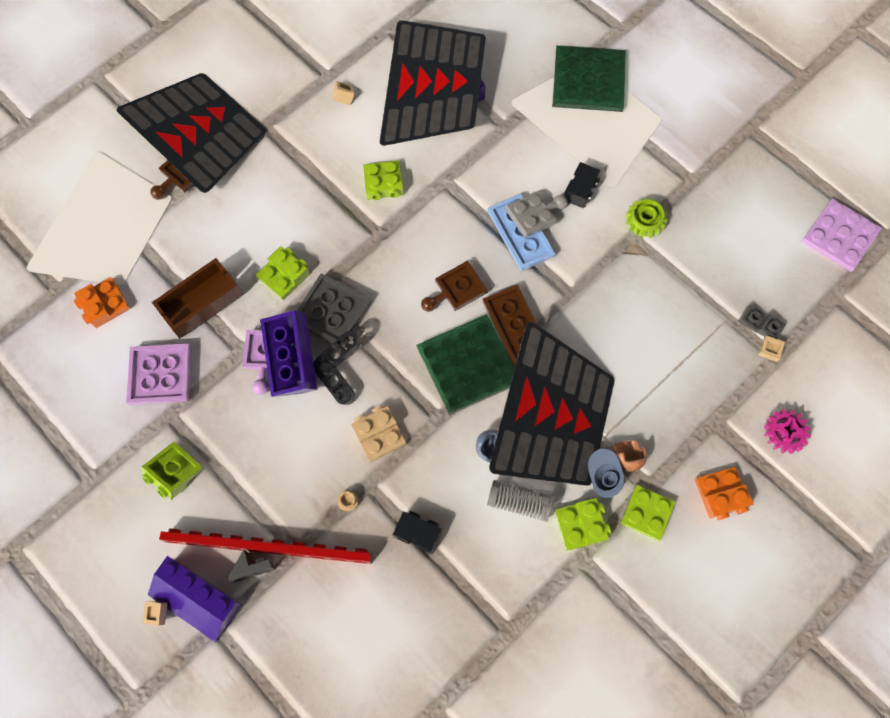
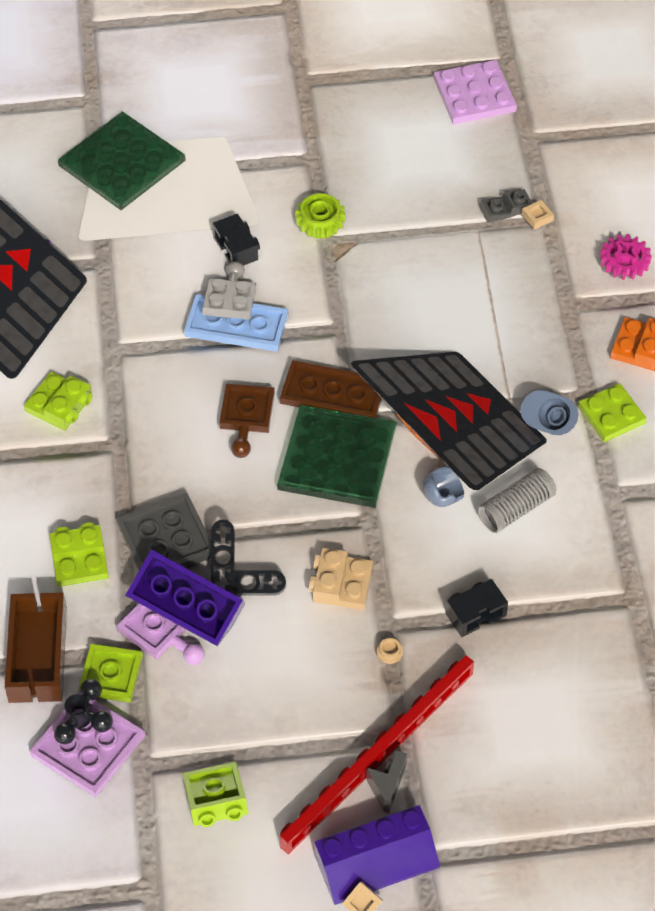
camera: 55 degrees left, 15 degrees down
(169, 370) = (100, 721): none -> black piece
(214, 351) = (114, 669): none -> lime plate
(582, 524) = (582, 468): lime plate -> none
(630, 455) = (553, 382): nougat hair -> none

